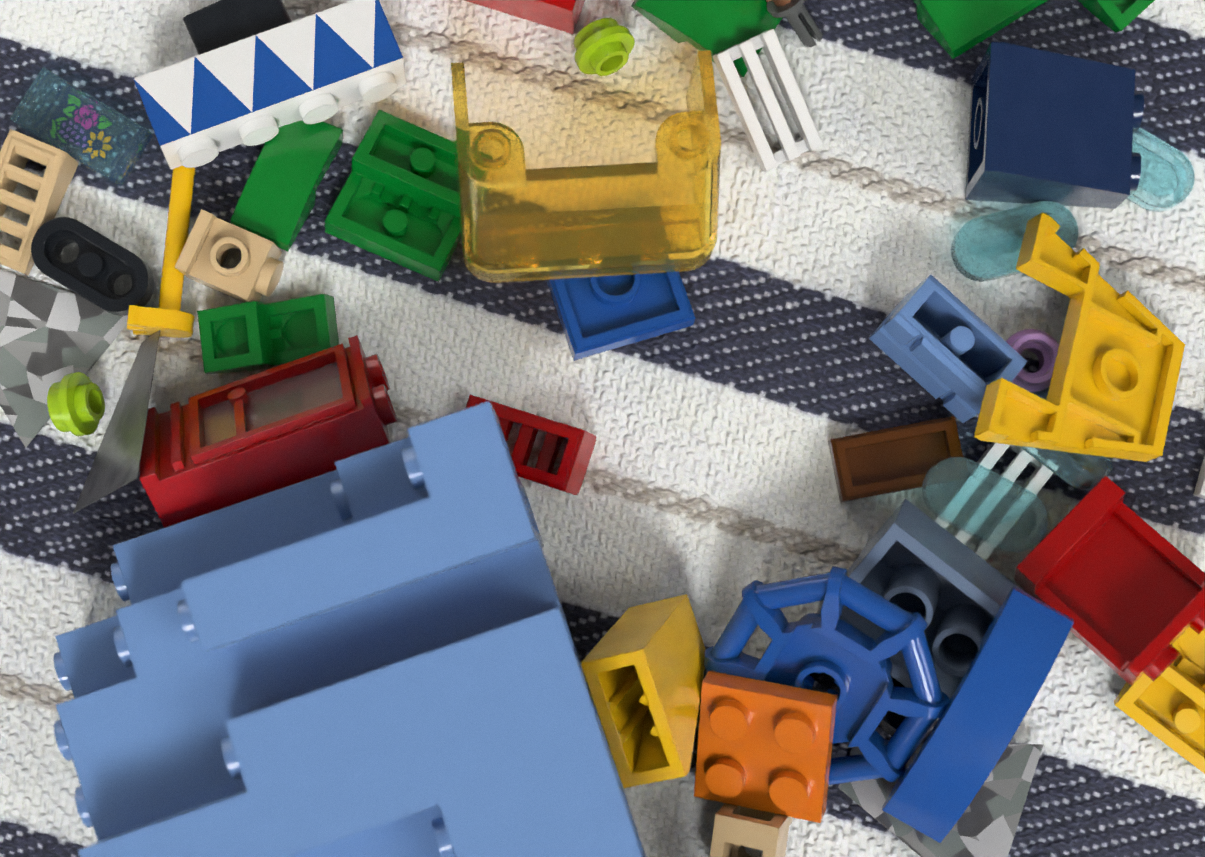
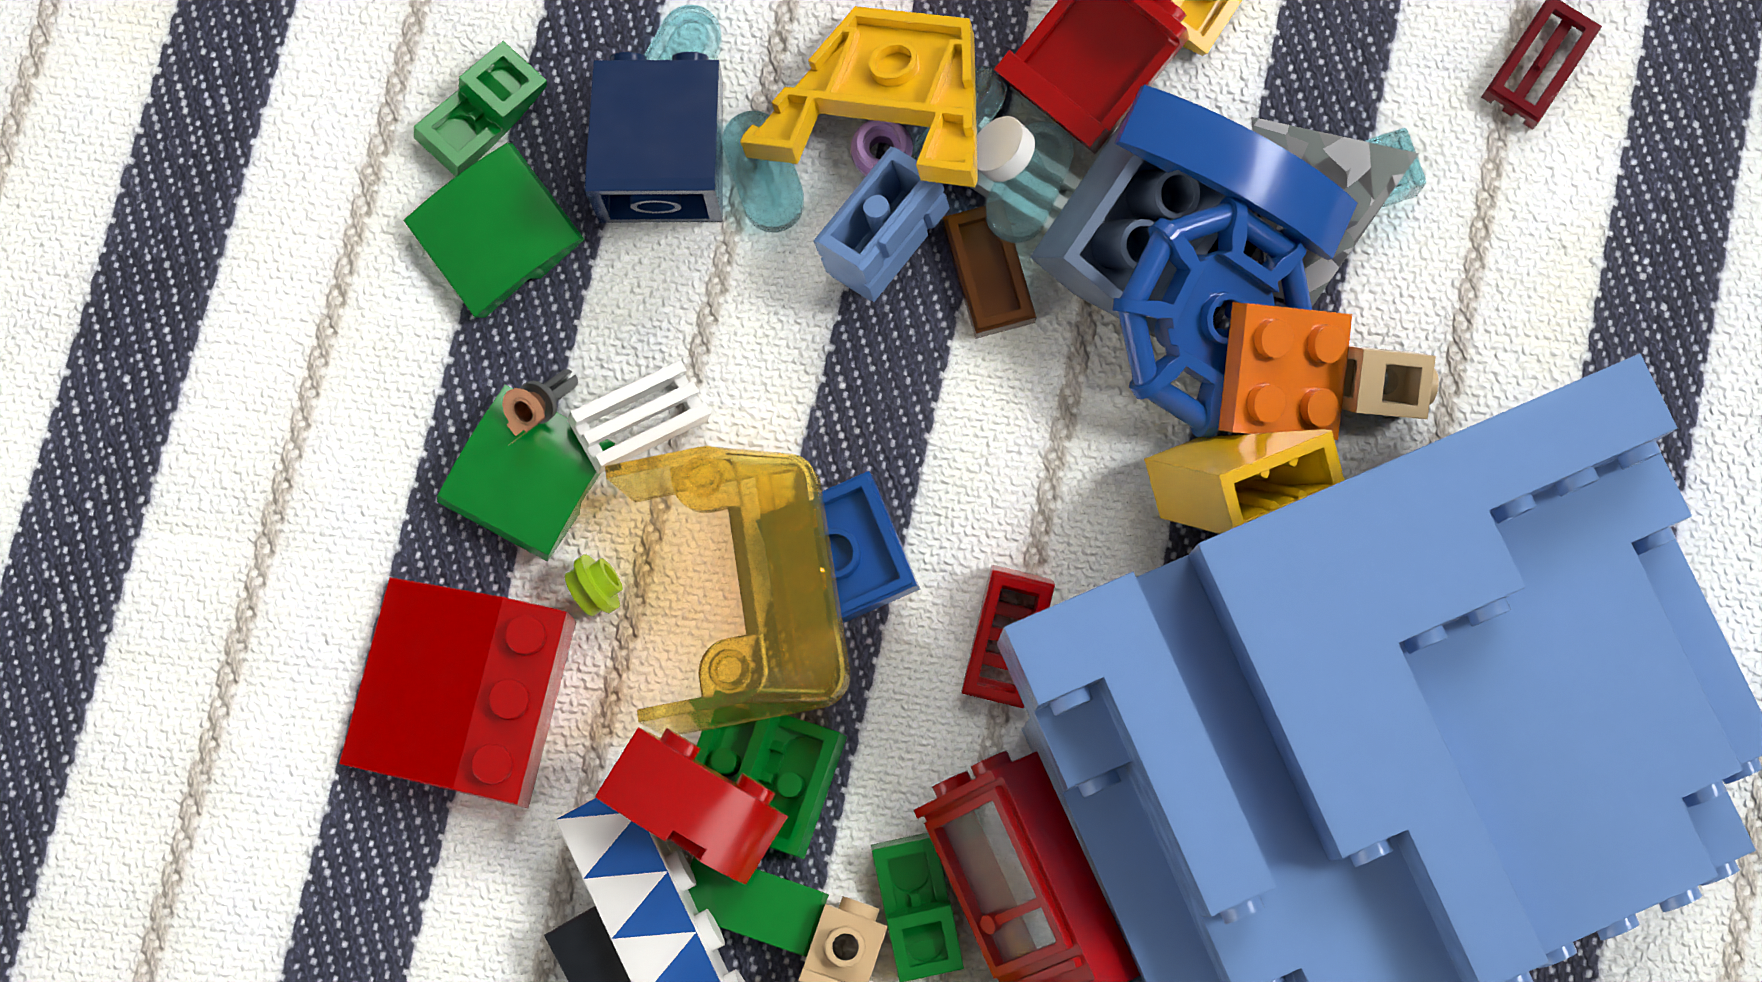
camera: 95 degrees left, 5 degrees down
(384, 93) = (691, 805): none -> red brick
(1018, 477) = (1004, 148): none -> white tile

